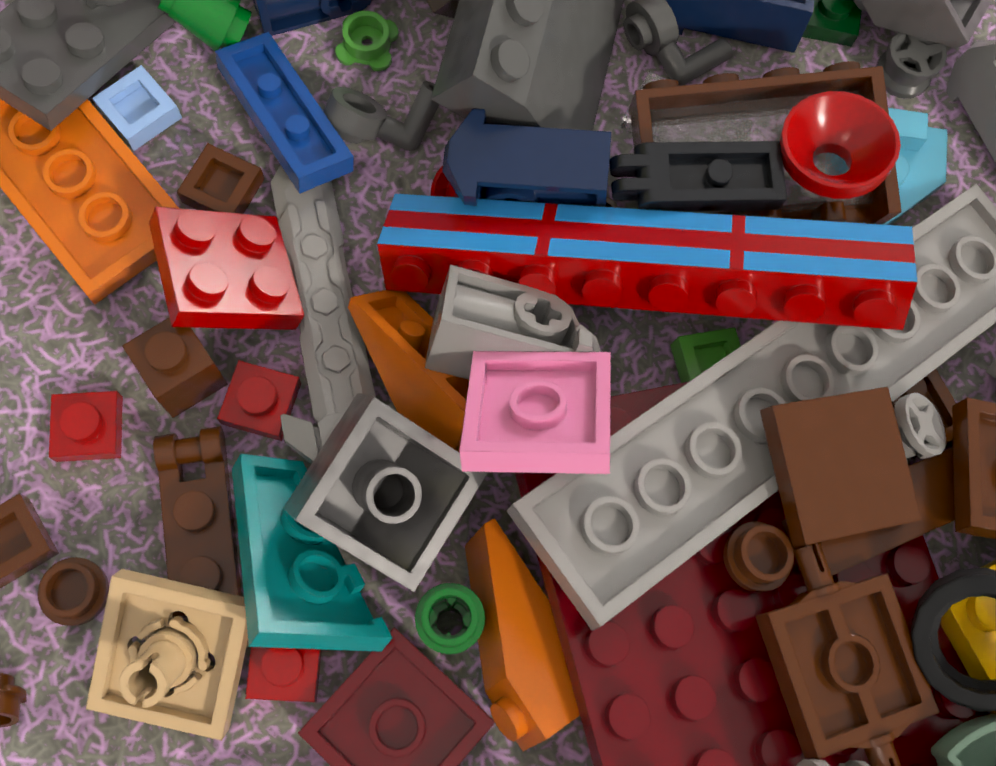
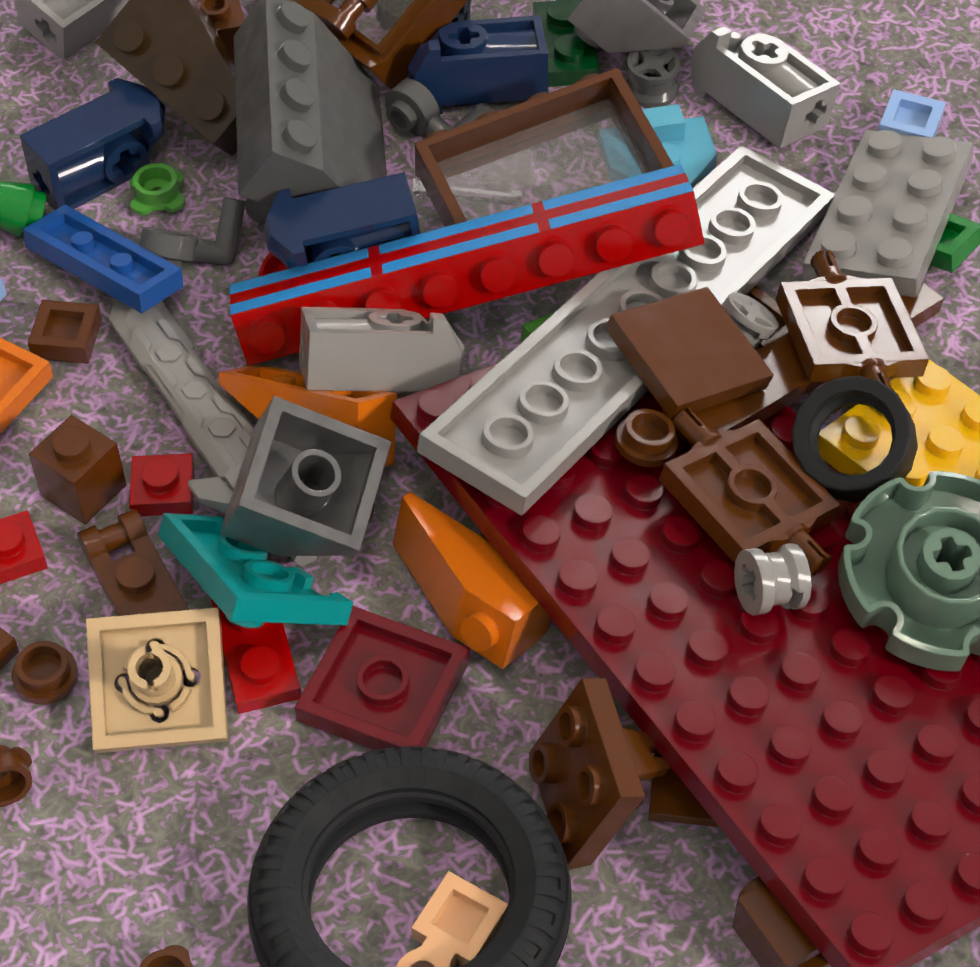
camera: 10 degrees left, 20 degrees down
(224, 270) = (97, 380): plate -> none
(449, 598) = (399, 576): green cone -> none
(537, 413) = (418, 372): bright pink plate -> none
(701, 176) = (493, 186): black hinge -> none
(842, 126) = (599, 123): red piece -> none

